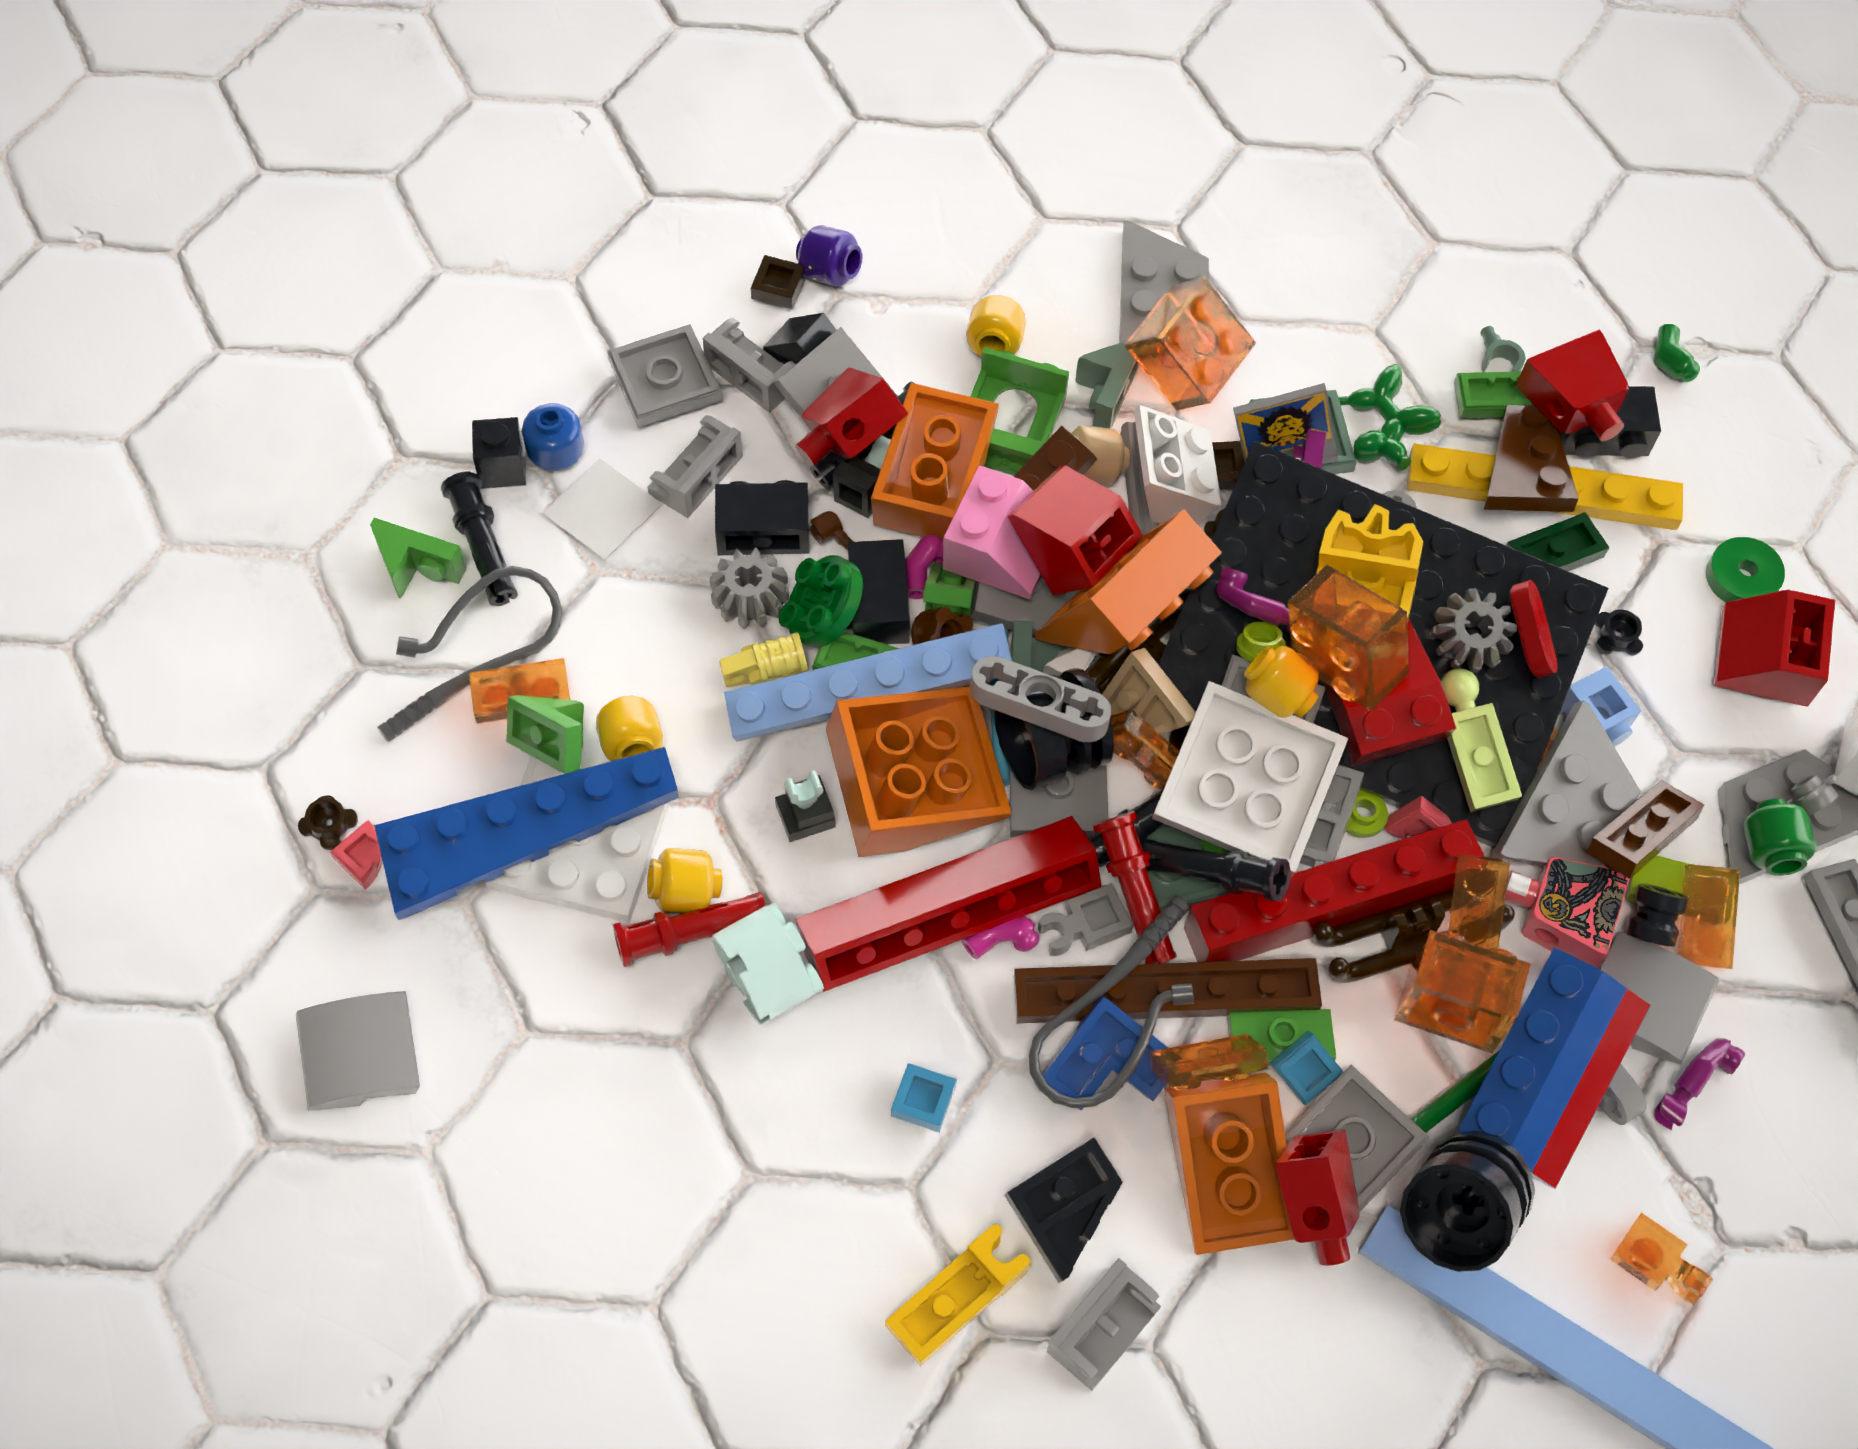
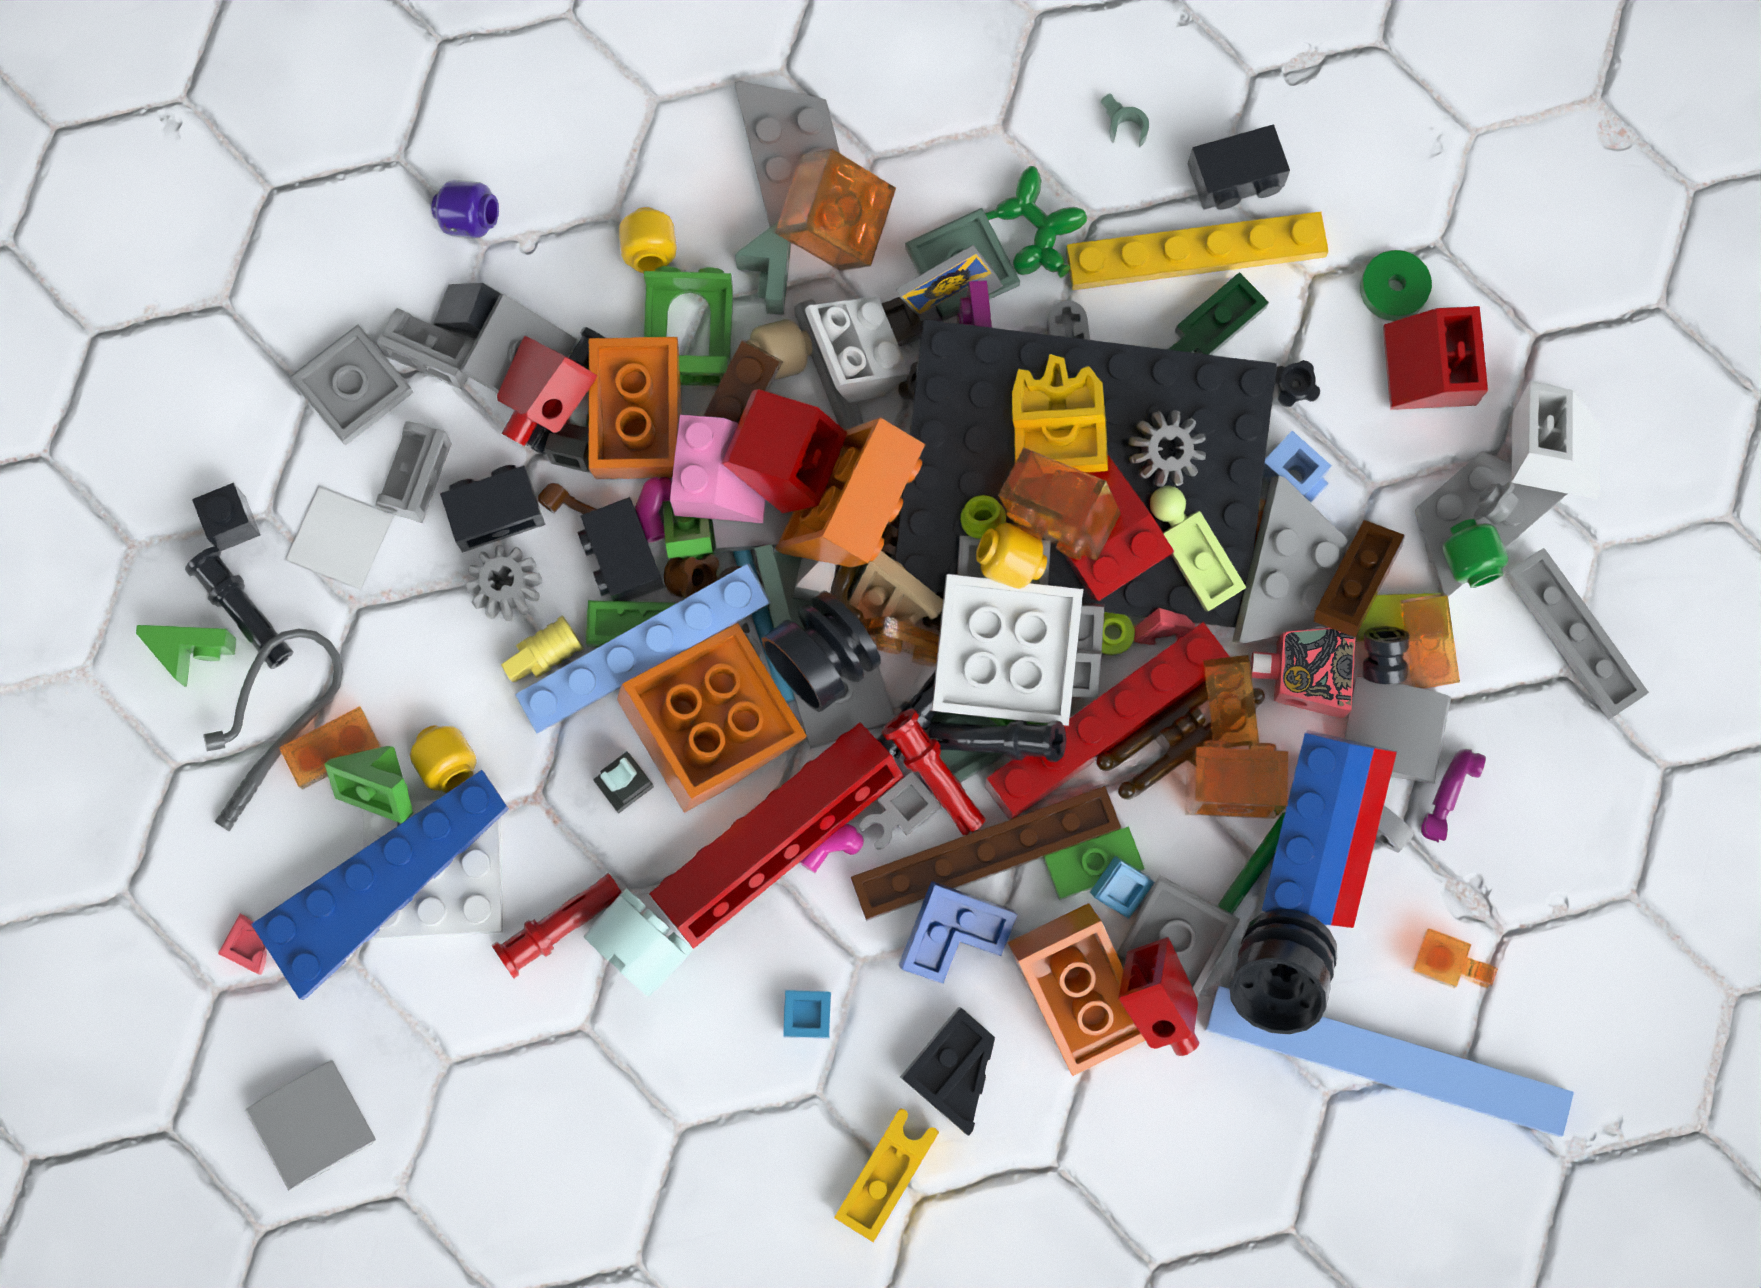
camera: 15 degrees left, 15 degrees up
(321, 810) = (196, 915): dark brown plate -> none
(552, 436) = (270, 486): blue head -> none
(683, 880) = (539, 885): yellow head -> none
(777, 282) = (425, 250): dark brown plate -> none
(822, 600) = (575, 579): green tile -> none
(1050, 717) = (839, 634): light grey beam -> none
(1104, 1324) = (1013, 1161): light grey hinge -> none
(1179, 995) = (998, 862): dark grey piece -> none
(1221, 1058) = (1039, 913): clear orange plate -> none
(1254, 605) = (943, 474): magenta arm -> none
(1487, 393) = (1136, 166): bright green plate -> none
(1530, 465) = (1178, 240): reddish brown wing -> none
(1533, 629) = (1220, 431): red tile -> none
(1577, 385) = (1204, 152): red torso -> none
(1673, 358) = (1283, 76): green arm -> none

